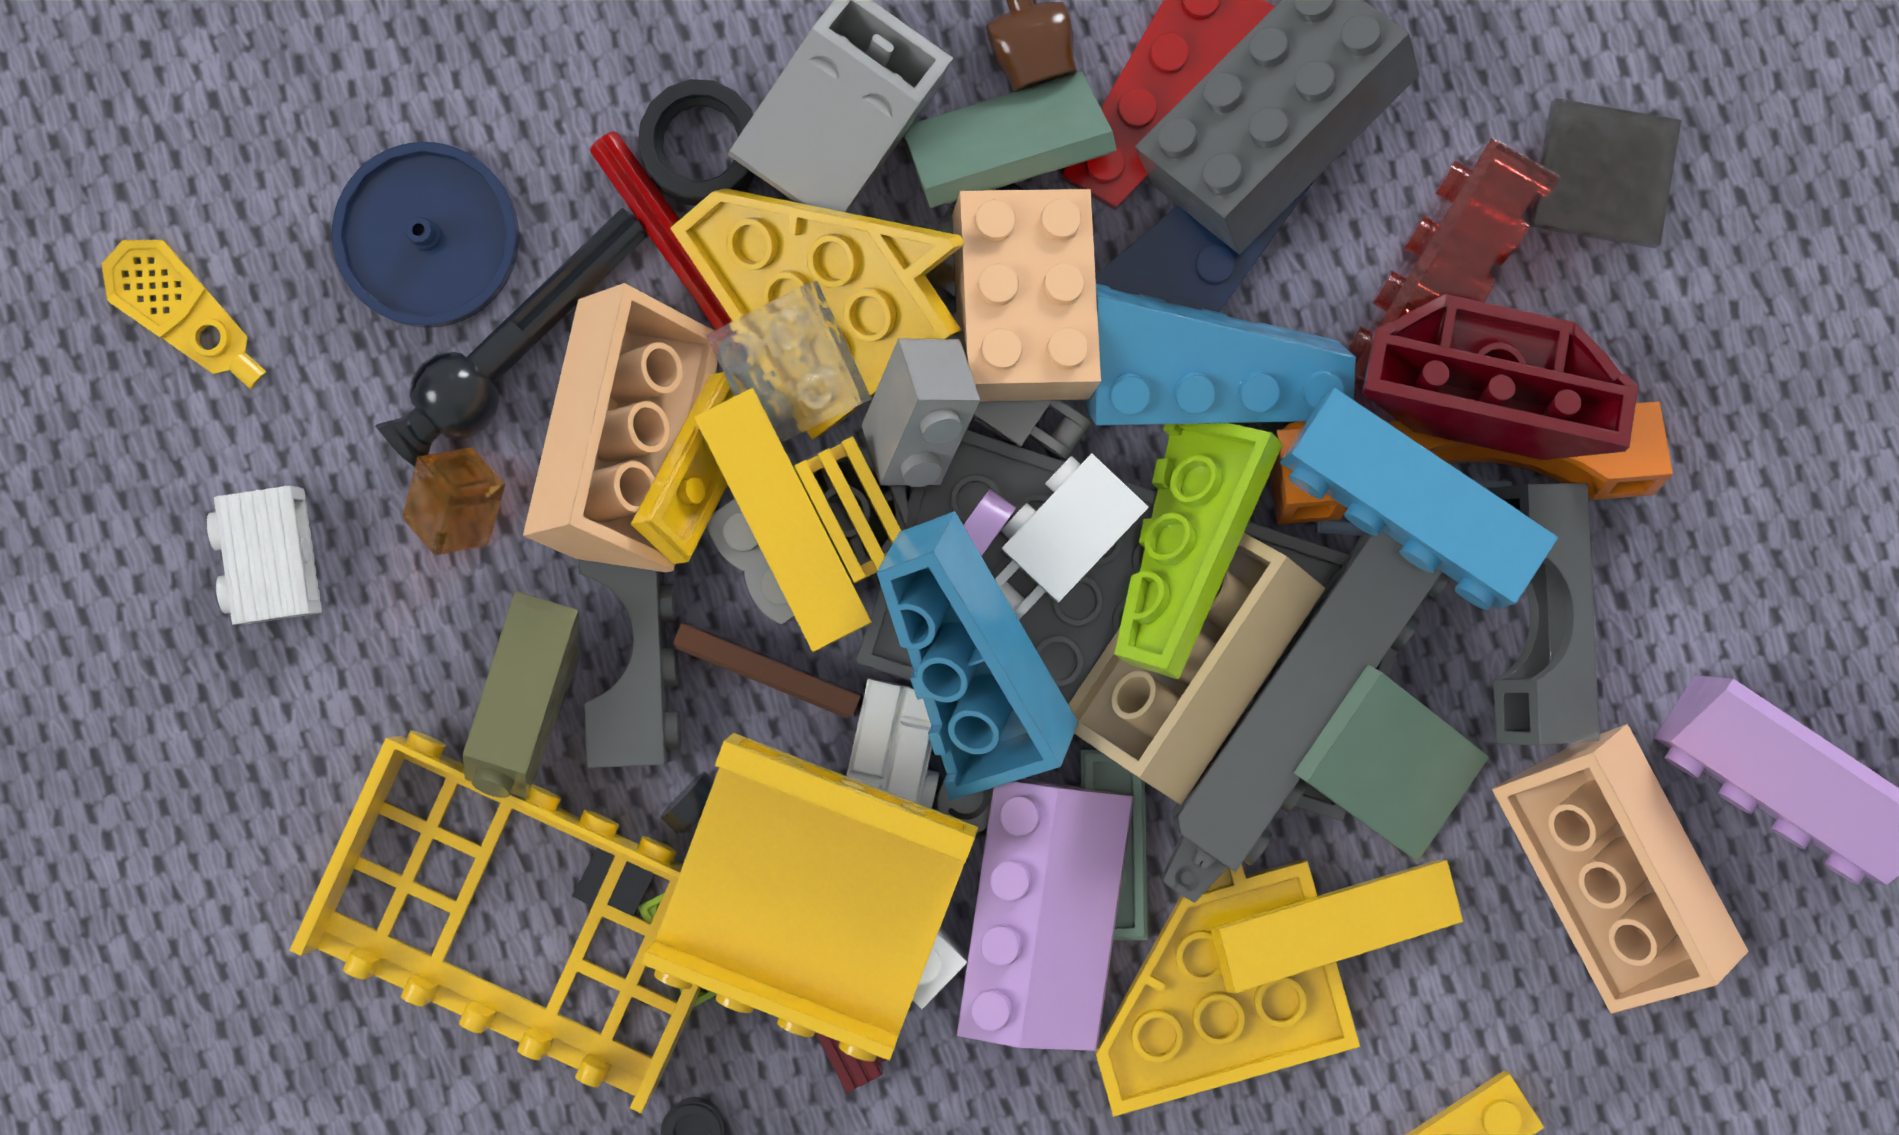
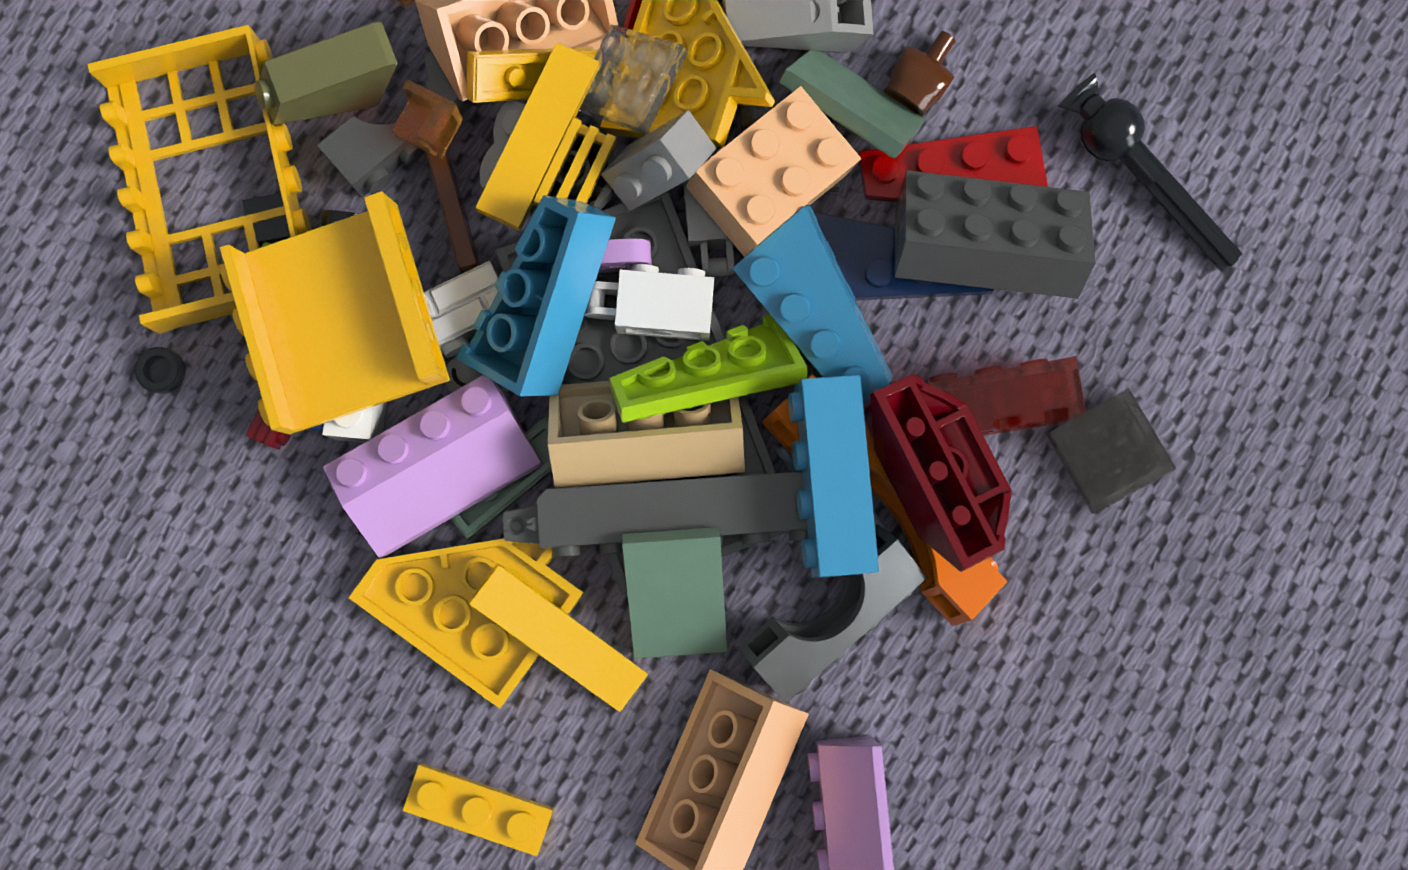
camera: 50 degrees right, 5 degrees down
(661, 627) = (427, 120): none -> clear orange panel

